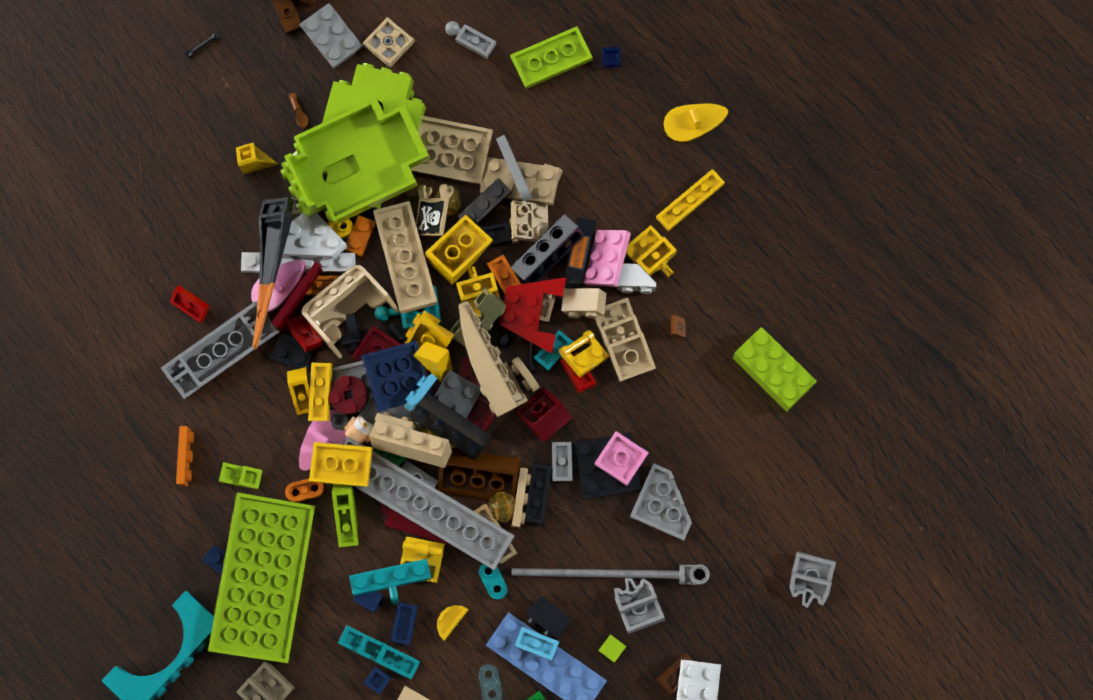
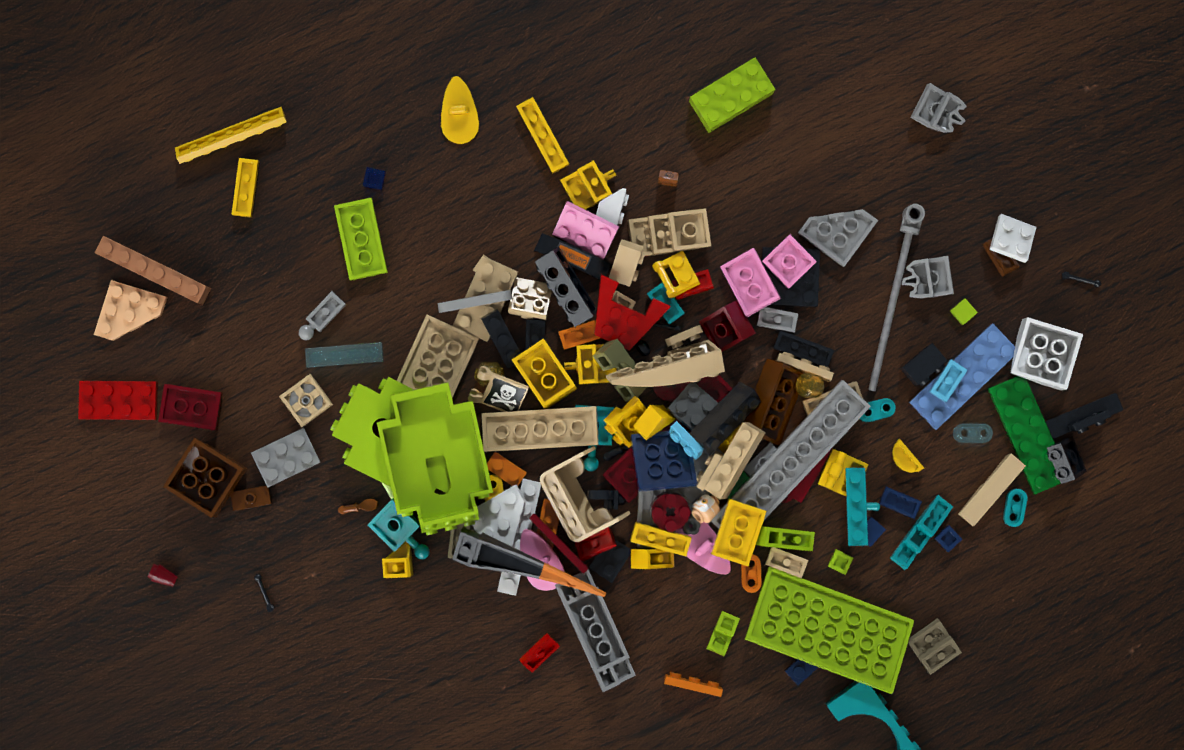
camera: 80 degrees left, 10 degrees up
(276, 150) = (396, 537): none -> teal plate
(322, 522) = (786, 562): none -> tan plate
(333, 577) = (840, 561): none -> lime tile
(438, 66) = (344, 355): none -> clear light blue plate
(592, 426) = (750, 282): none -> bright pink plate

